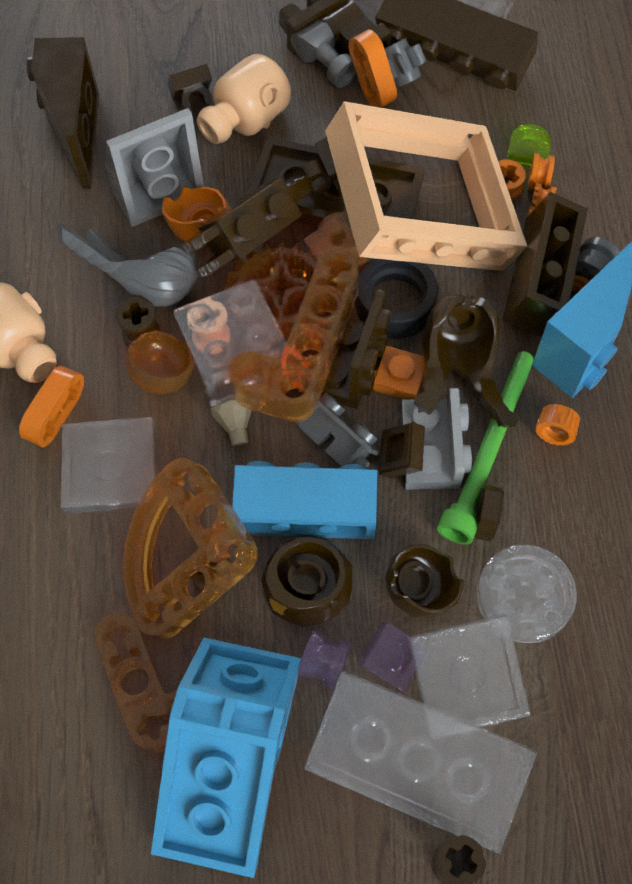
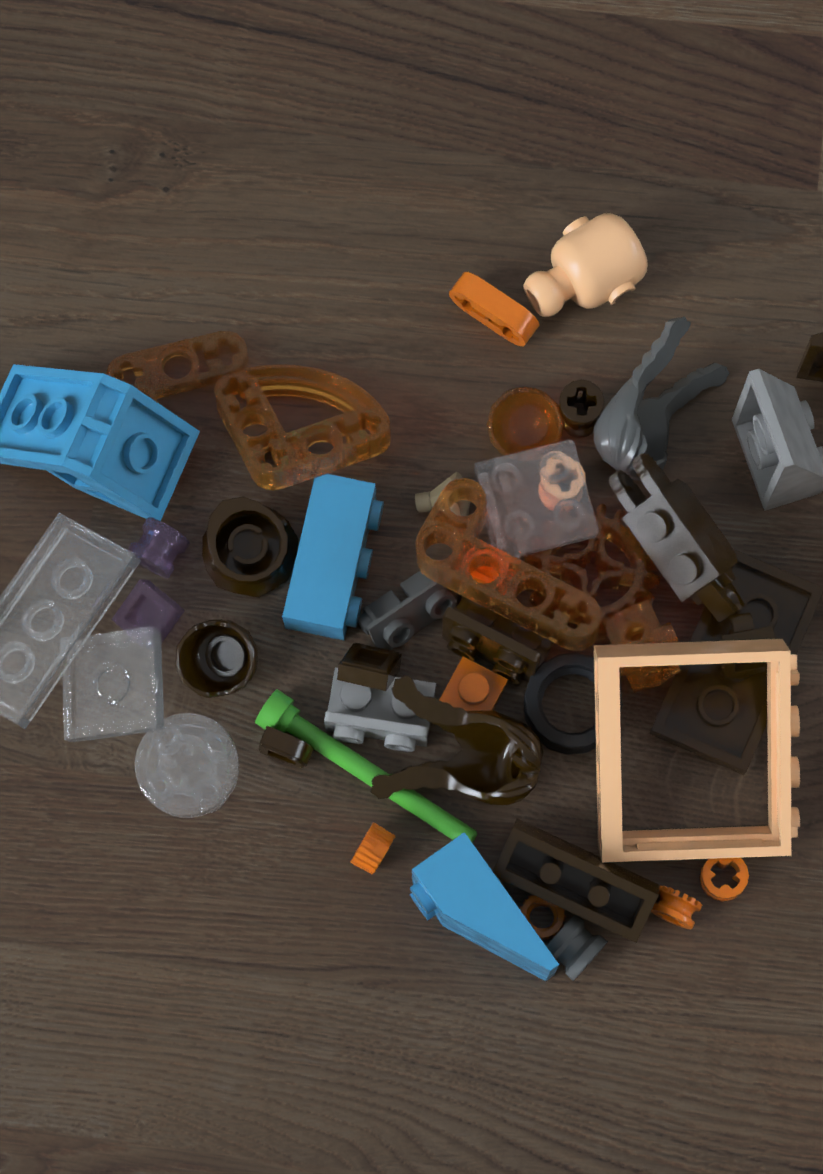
camera: 100 degrees right, 10 degrees up
(106, 464) = (419, 363): clear tile -> none
(191, 210) = (724, 485): orange hair -> none
(526, 141) = (774, 920): clear neon green tile -> none
(541, 171) = (723, 918): orange bush -> none

